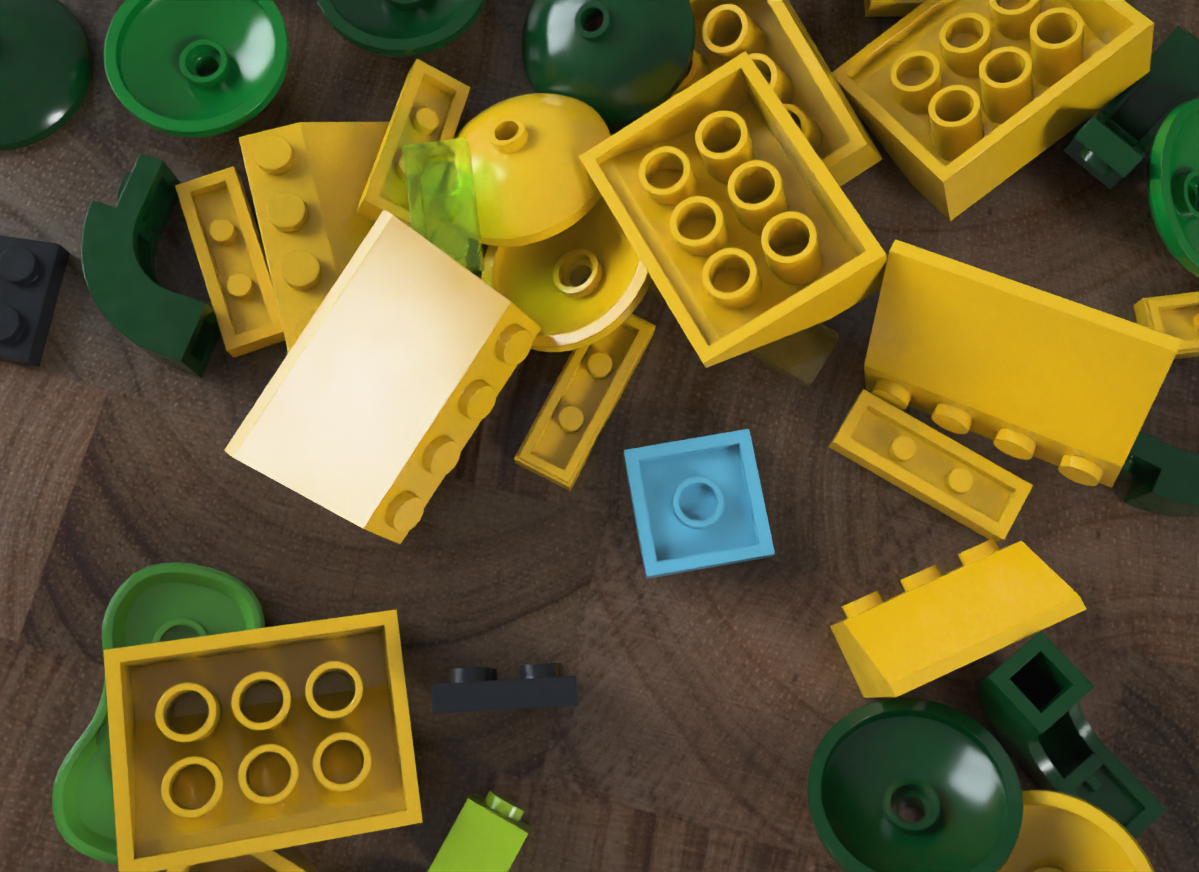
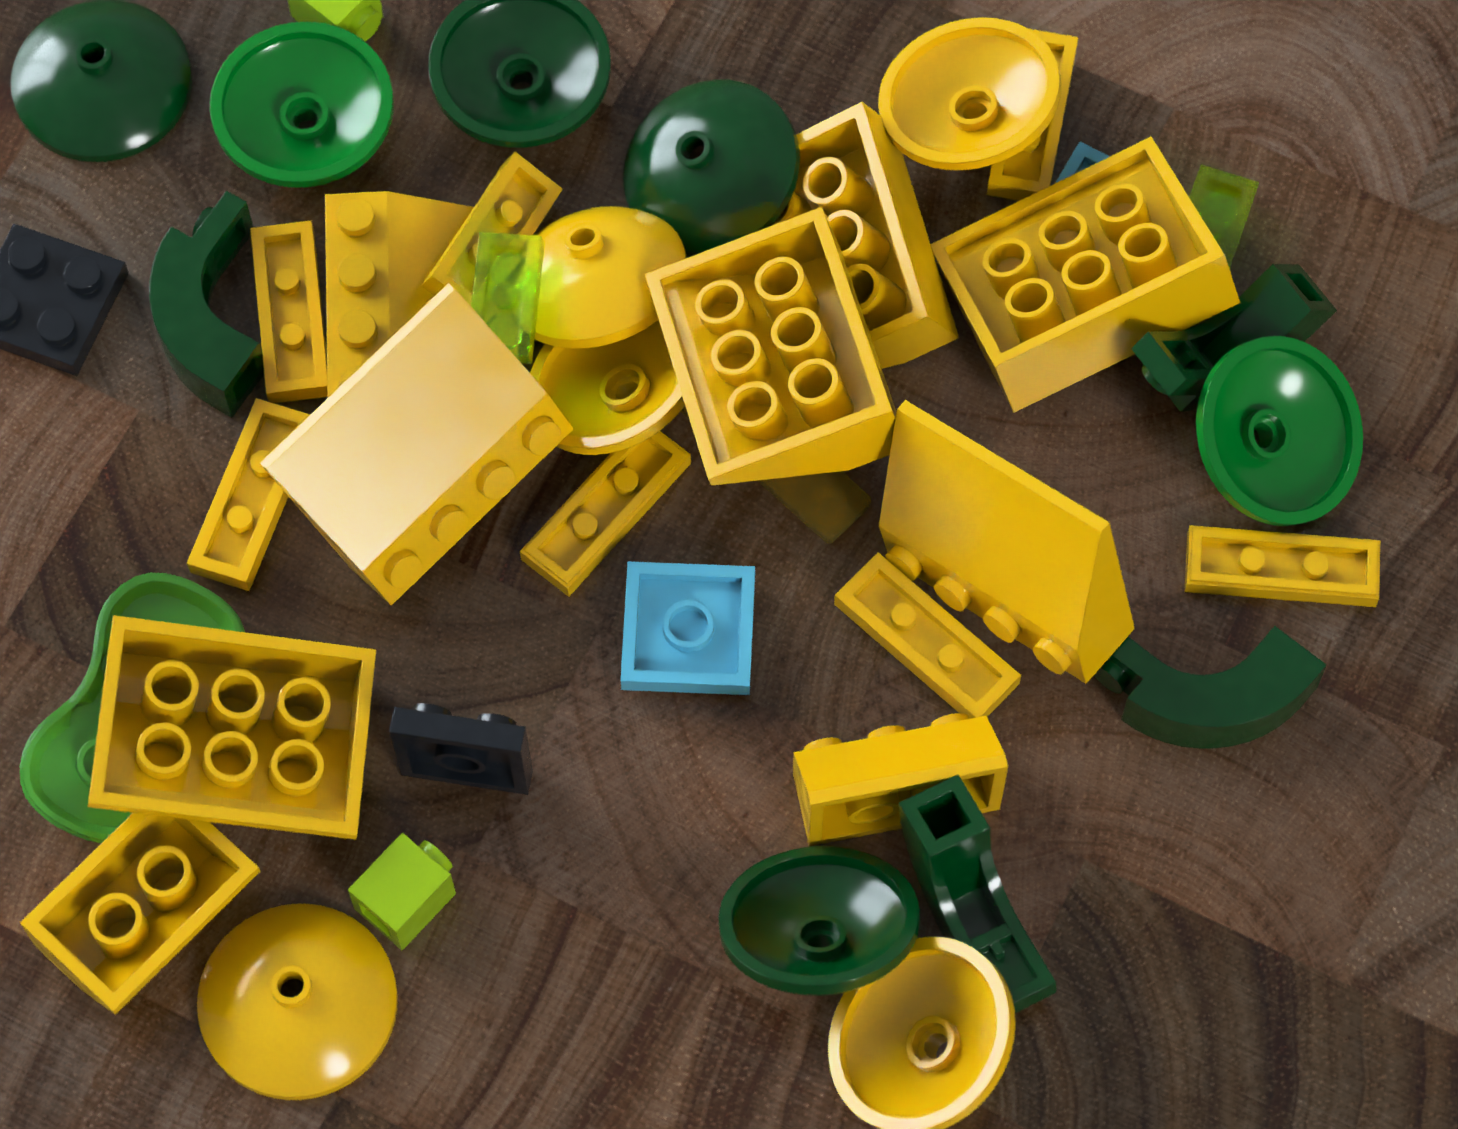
camera: 15 degrees right, 10 degrees down
(227, 492) = (245, 502): none -> yellow plate

